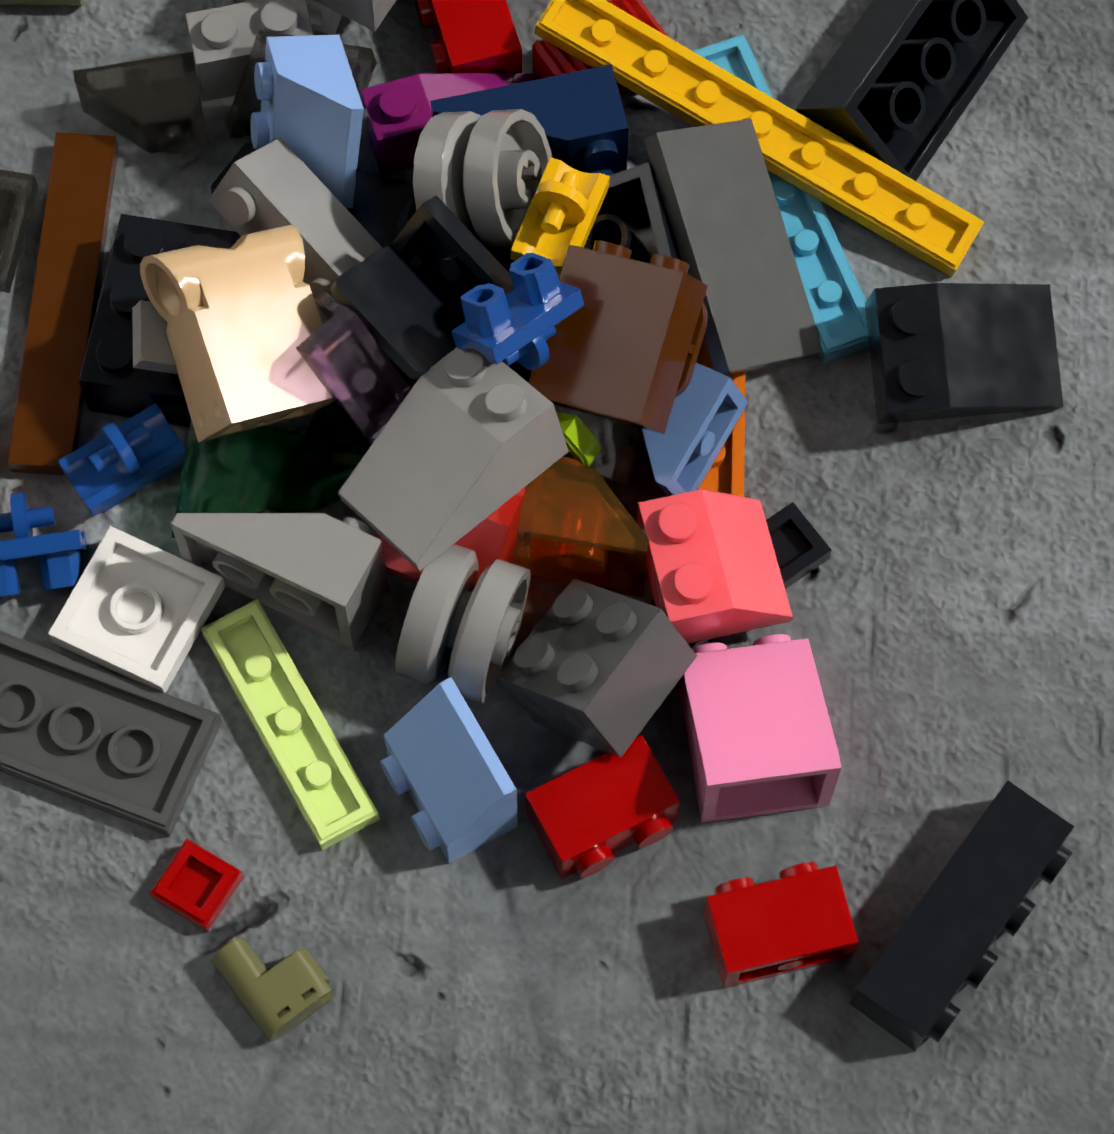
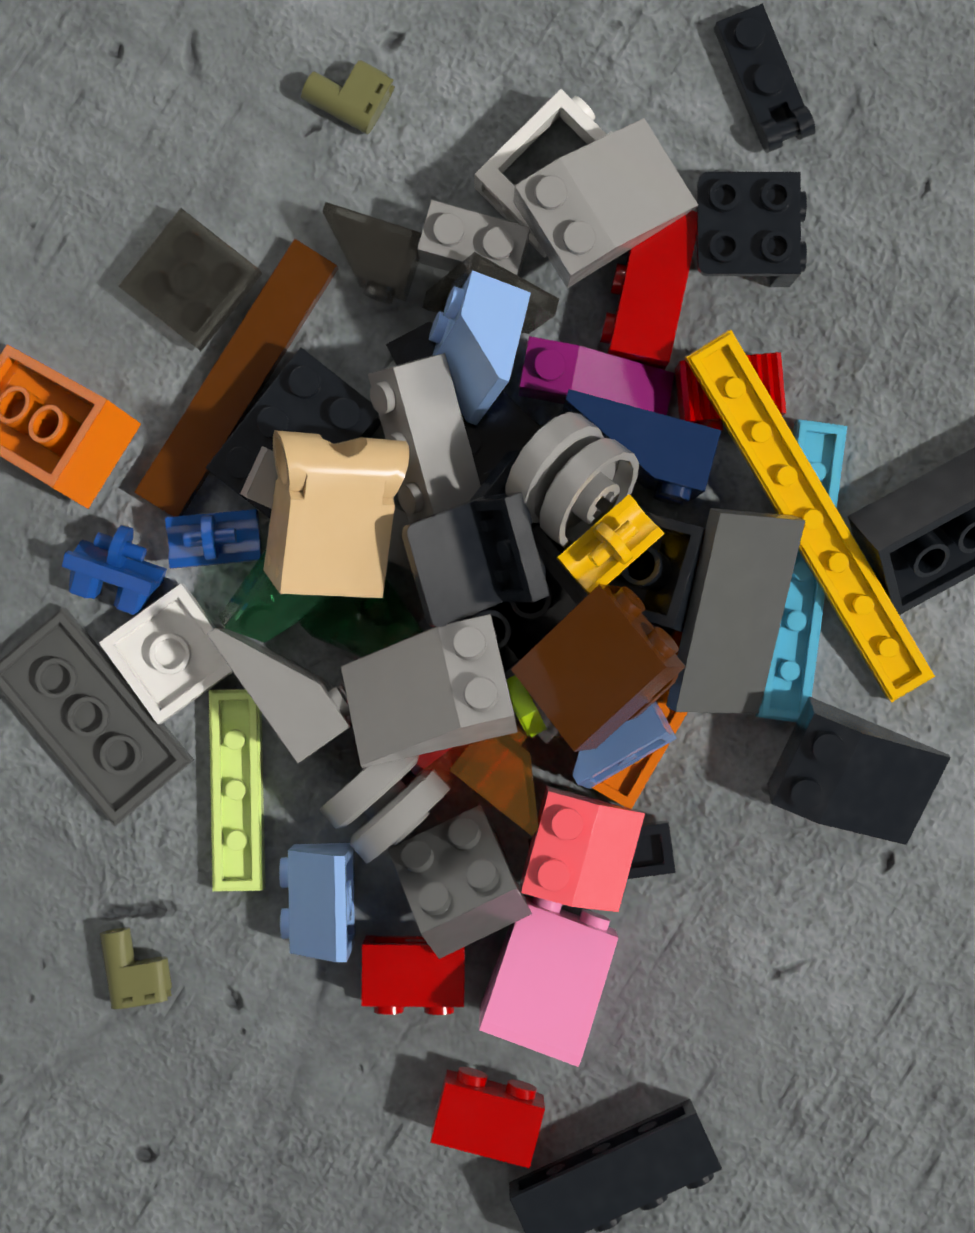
camera: 30 degrees right, 20 degrees up
(196, 885) = (117, 871): red tile -> none
(353, 369) = (392, 590): clear purple panel -> none
(517, 323) = (528, 627): blue hips -> none

